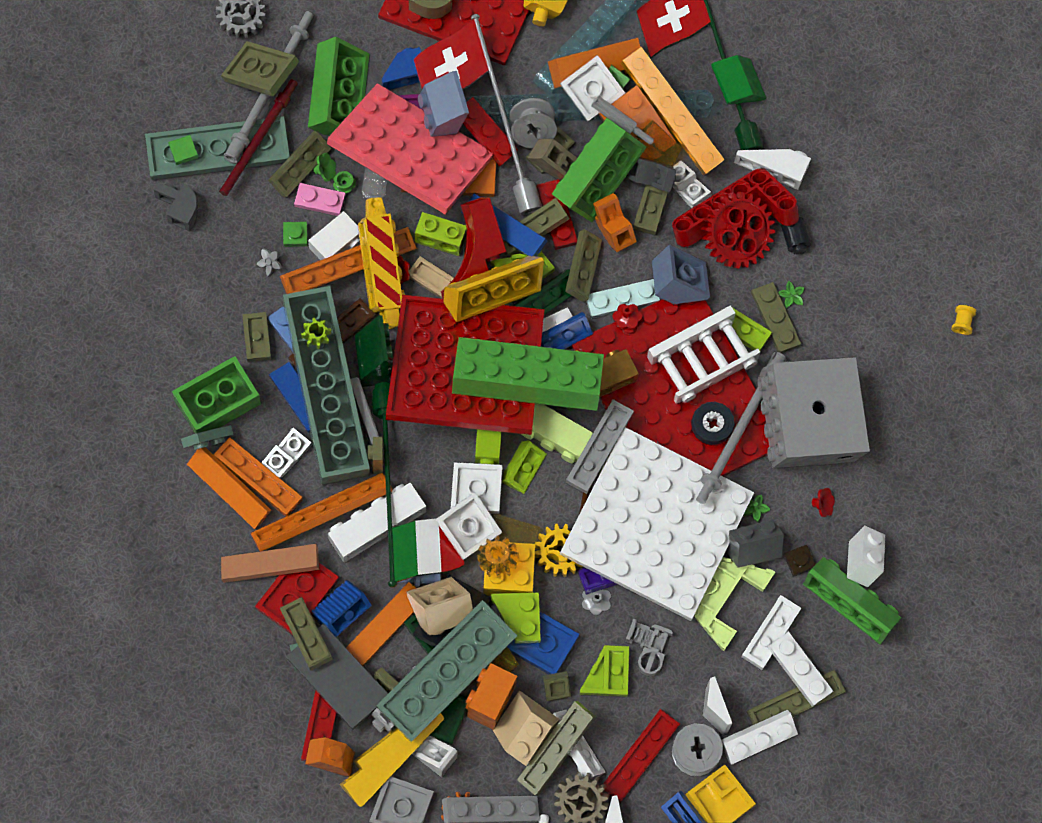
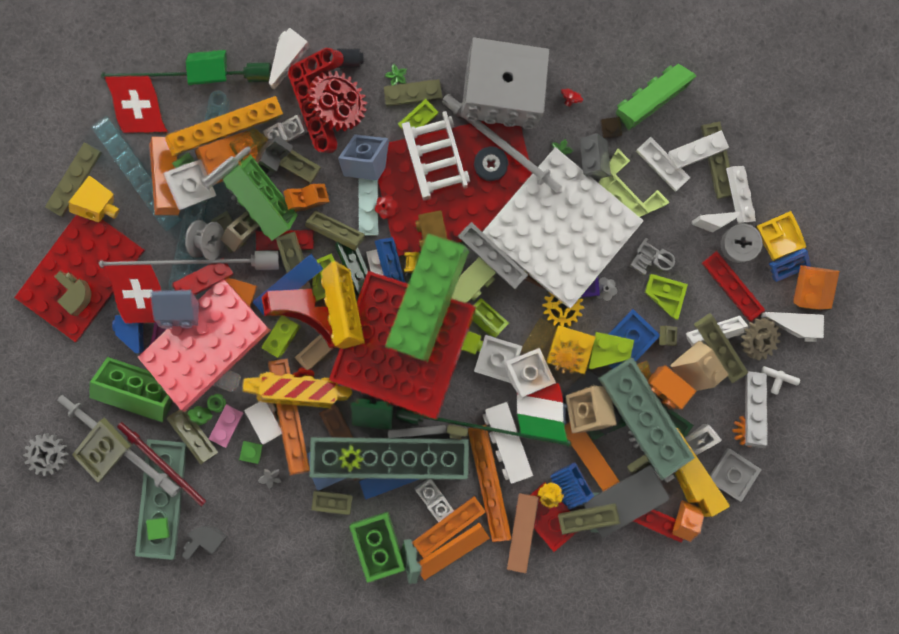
camera: 70 degrees left, 15 degrees up
(324, 581) = (550, 495): none -> yellow gear
(866, 556) = (625, 76): white brick -> none

